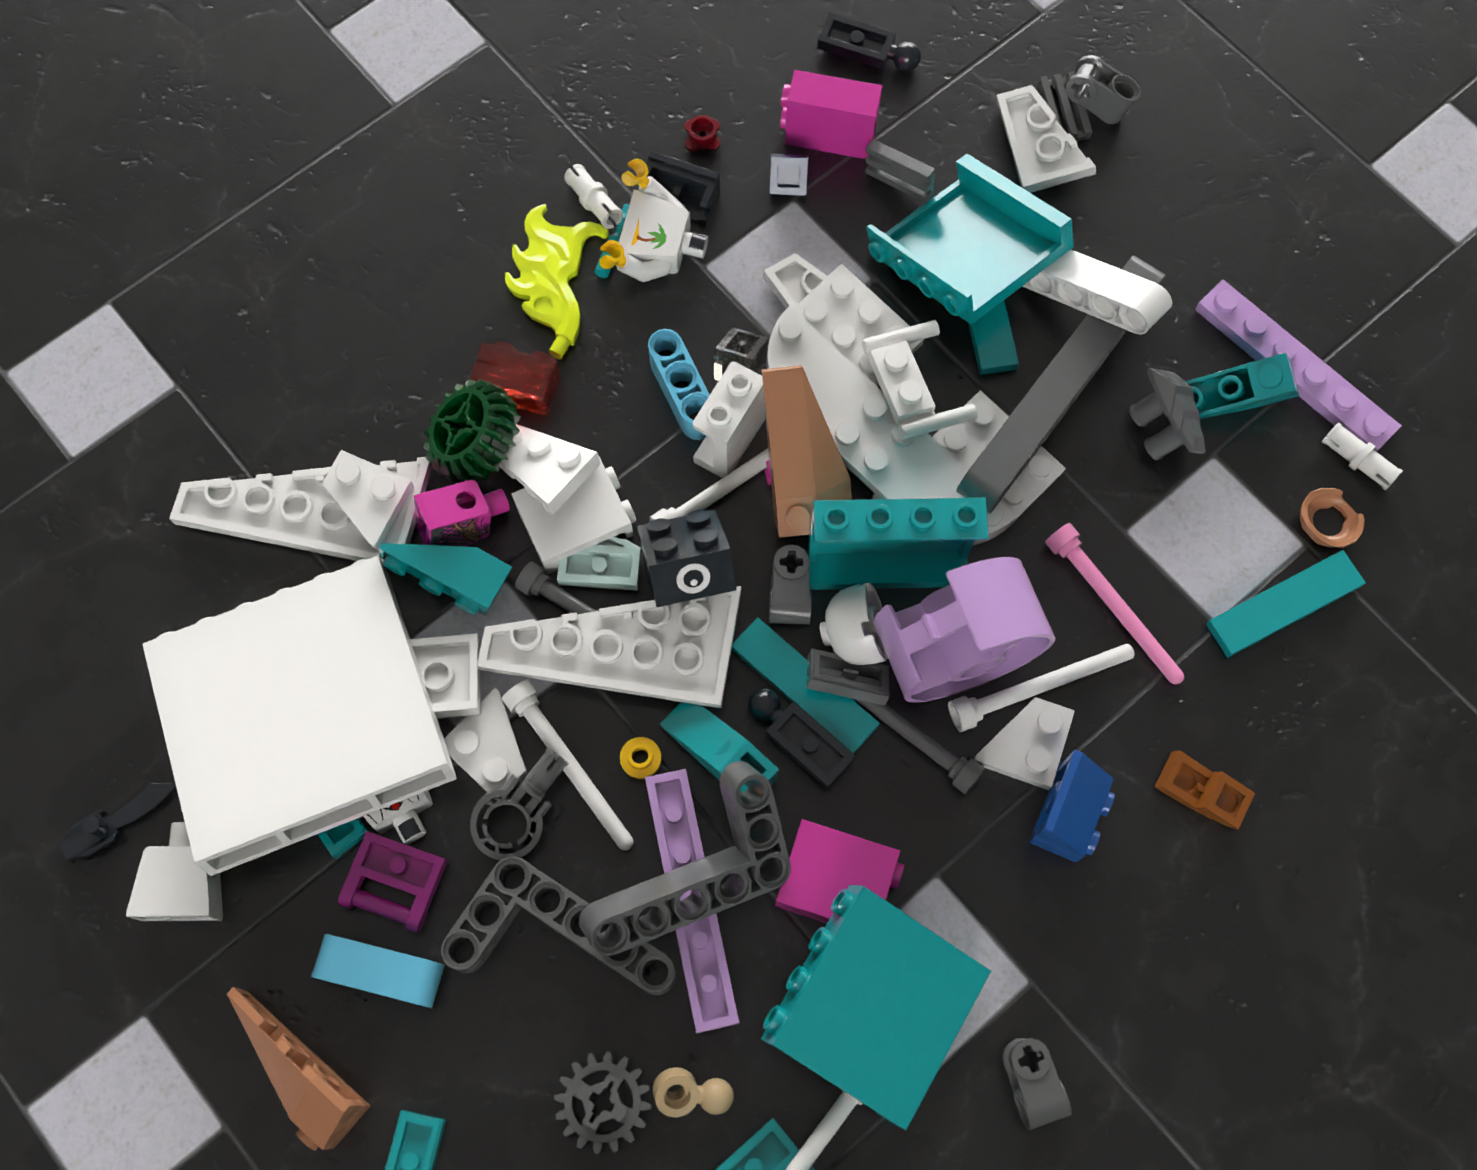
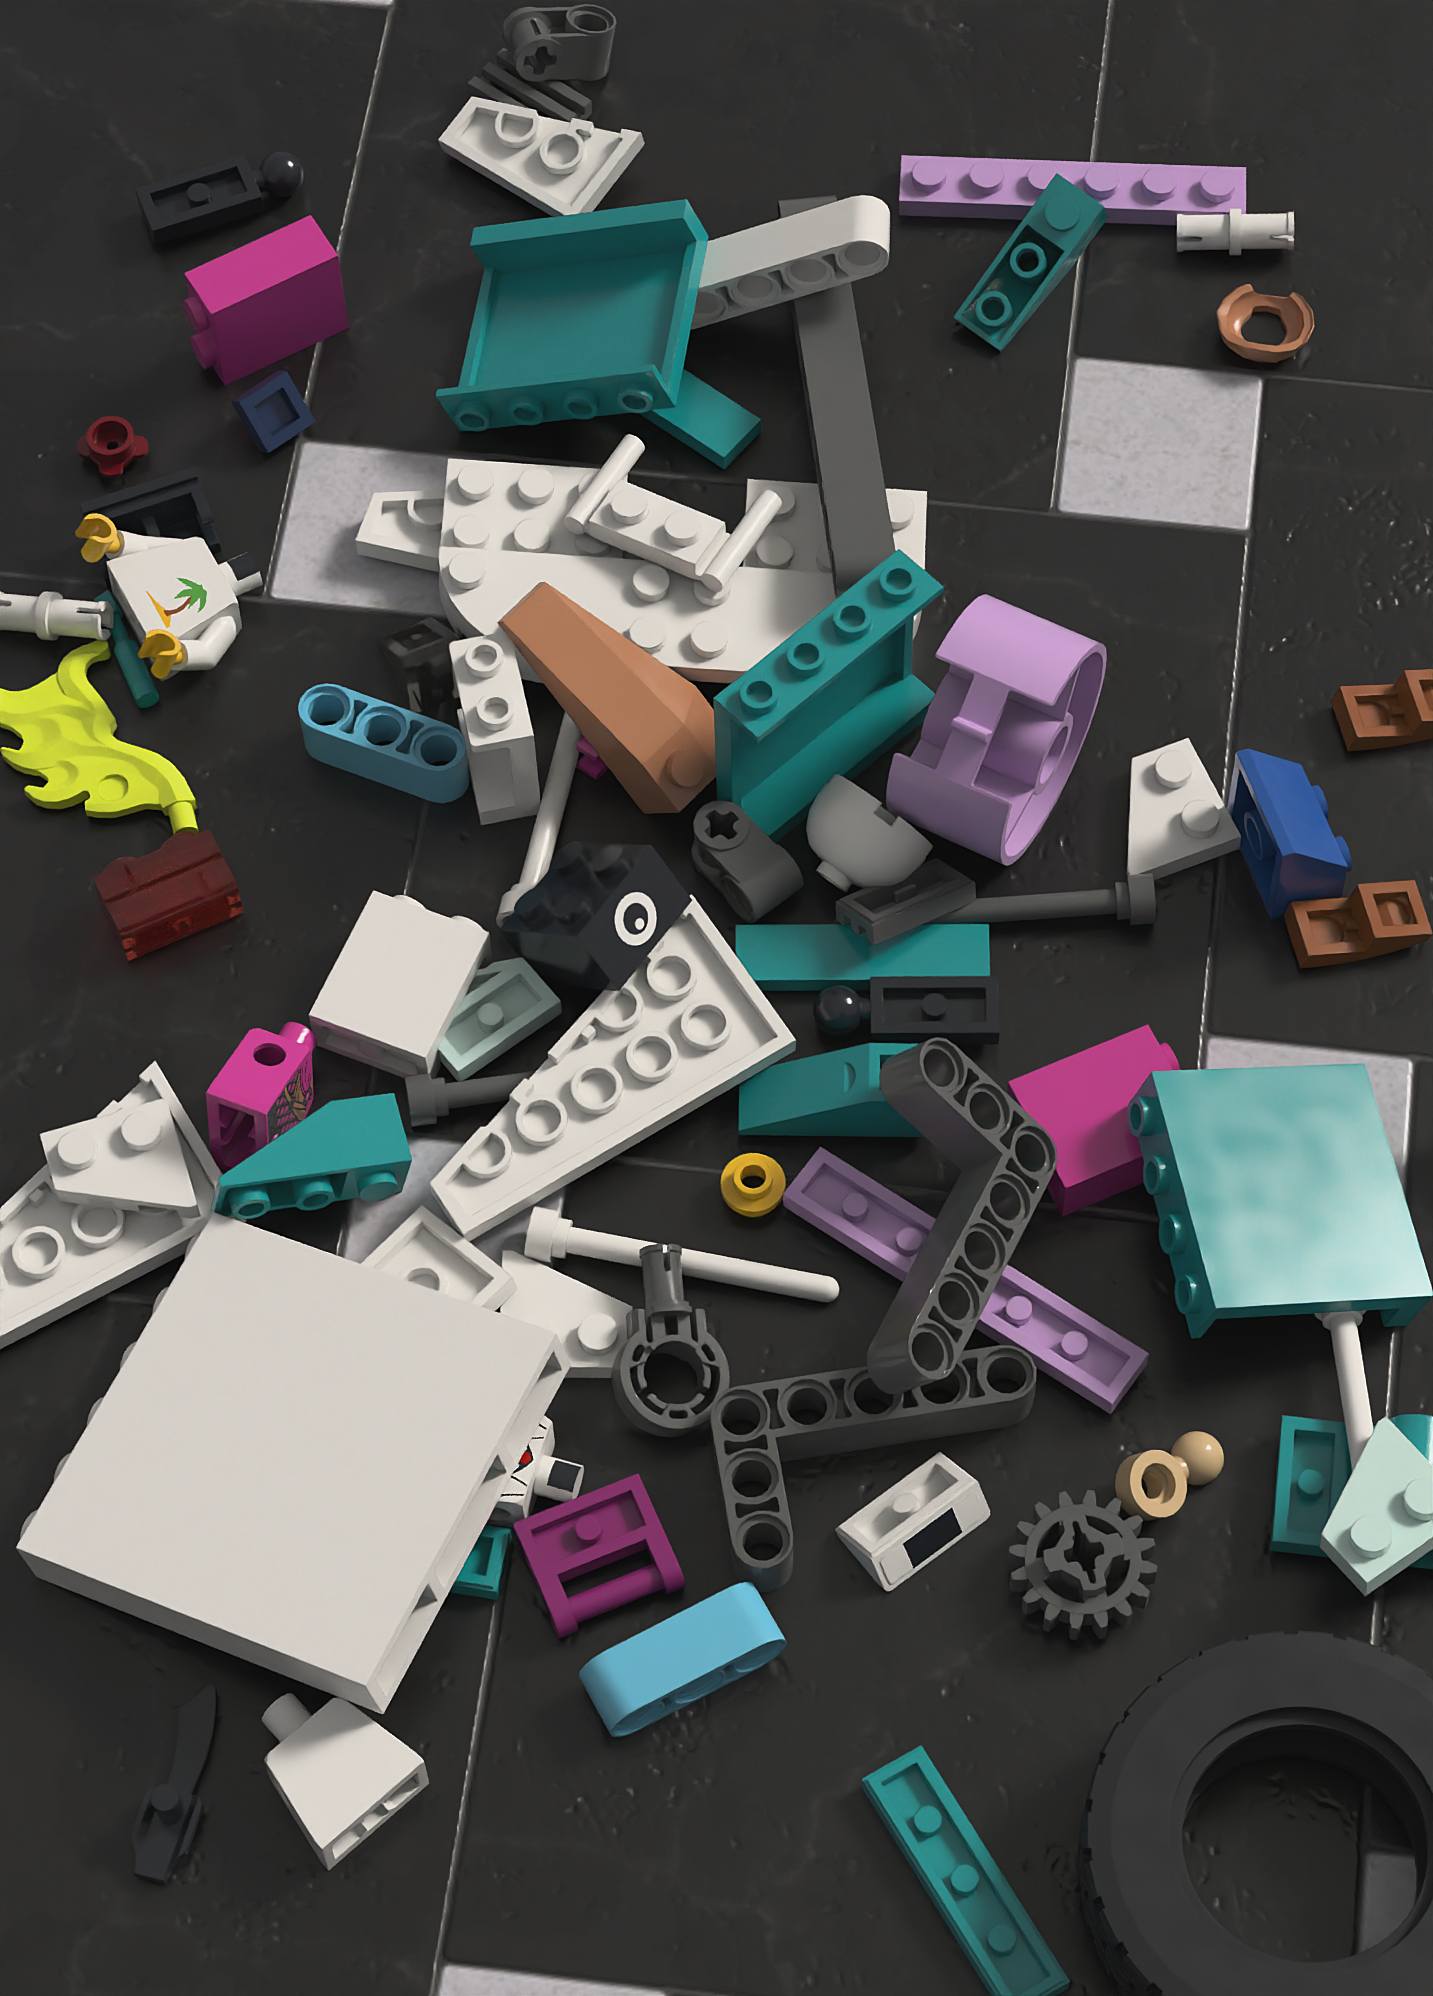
camera: 40 degrees left, 10 degrees down
(307, 1087) = (746, 1842): nougat wedge -> none
(471, 431) = (206, 995): dark green gear -> none
(548, 466) = (314, 949): white wing -> none
(552, 999) = (915, 1521): none -> white slope
(900, 171) = (409, 307): dark grey tile -> none
(967, 712) = (1073, 834): white piece -> none
(1067, 544) = (1008, 571): bright pink piece -> none
(1068, 886) = (1365, 925): none -> dark orange slope
(1177, 403) = (981, 317): dark grey connector -> none
(1285, 603) = (1301, 451): teal tile -> none

